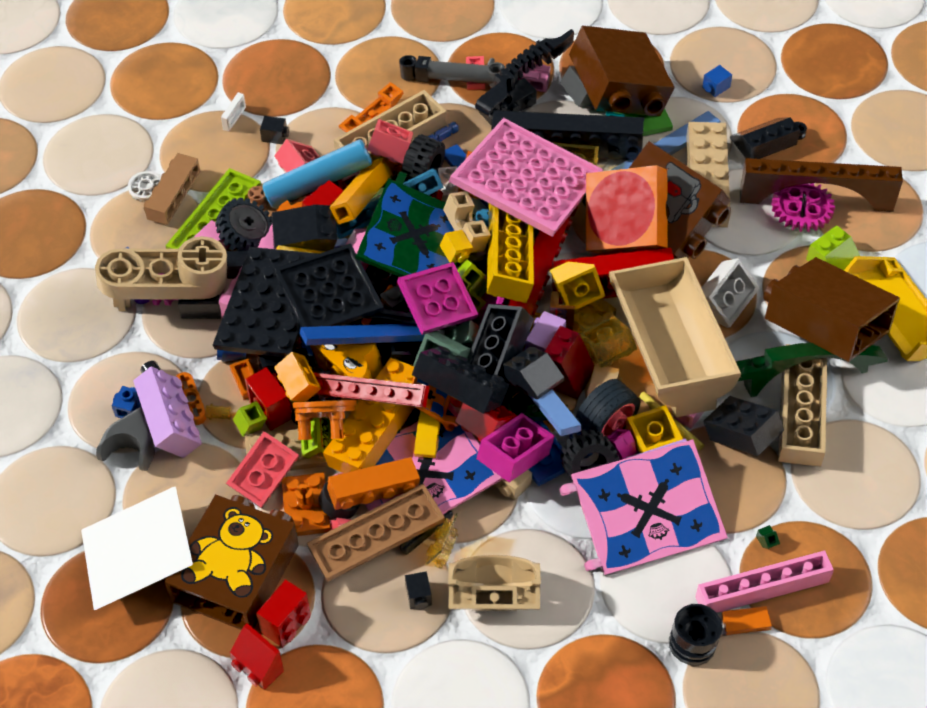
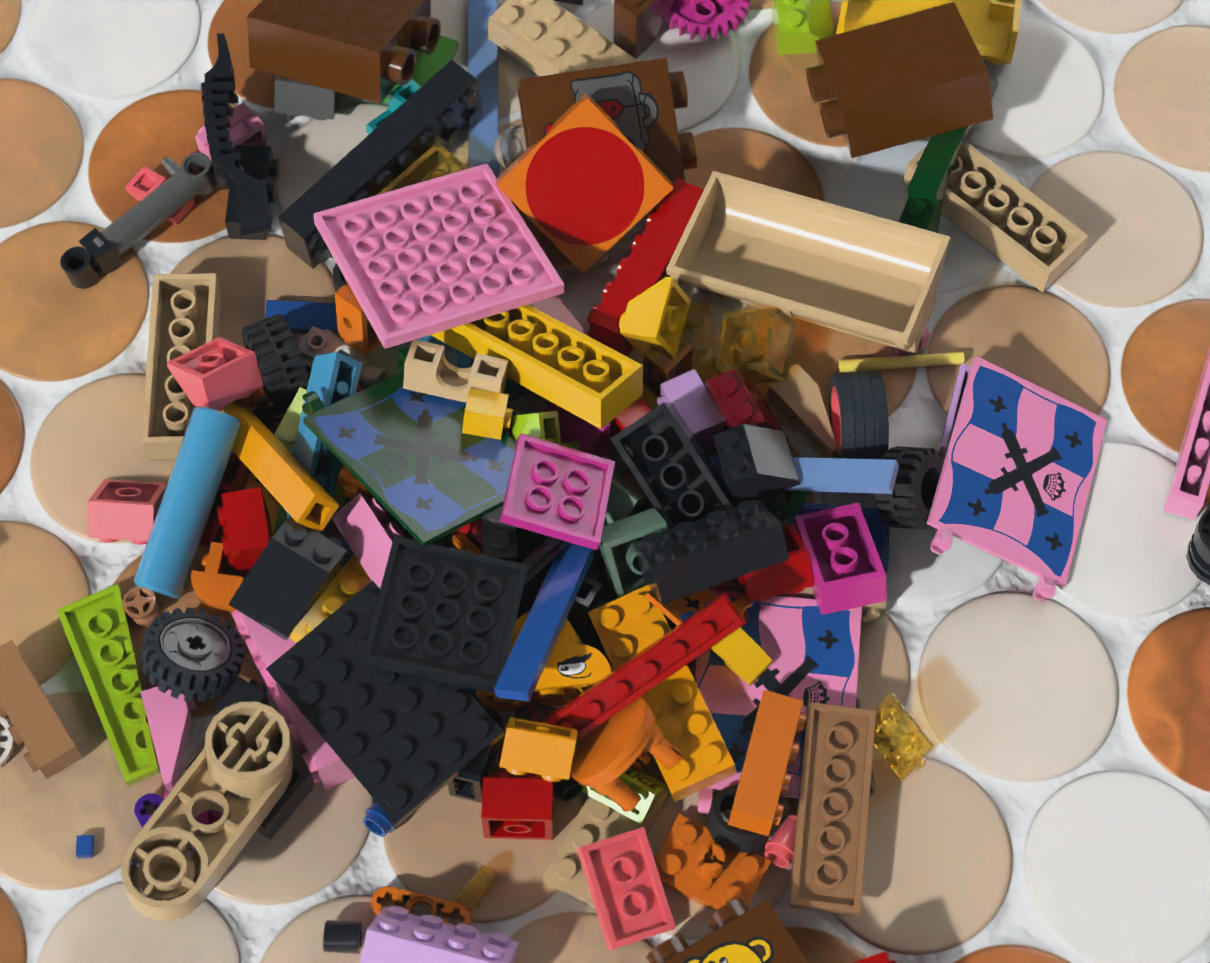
camera: 55 degrees left, 10 degrees up
(241, 371) = (446, 820): orange tile -> none
(249, 418) = (529, 853): lime brick -> none
(274, 130) = (36, 507): black brick -> none
(387, 98) = (117, 362): orange slope -> none
(418, 590) = (945, 814): black brick -> none
(445, 132) = (231, 305): blue axle -> none
(494, 583) = (1006, 721): tan piece -> none
(623, 443) = (908, 433): dark pink piece -> none
(653, 429) = (919, 391): yellow slope -> none
(729, 291) = (763, 157): white slope -> none
(744, 425) = (987, 290): black brick -> none
(767, 537) = (1141, 378): dark green piece -> none

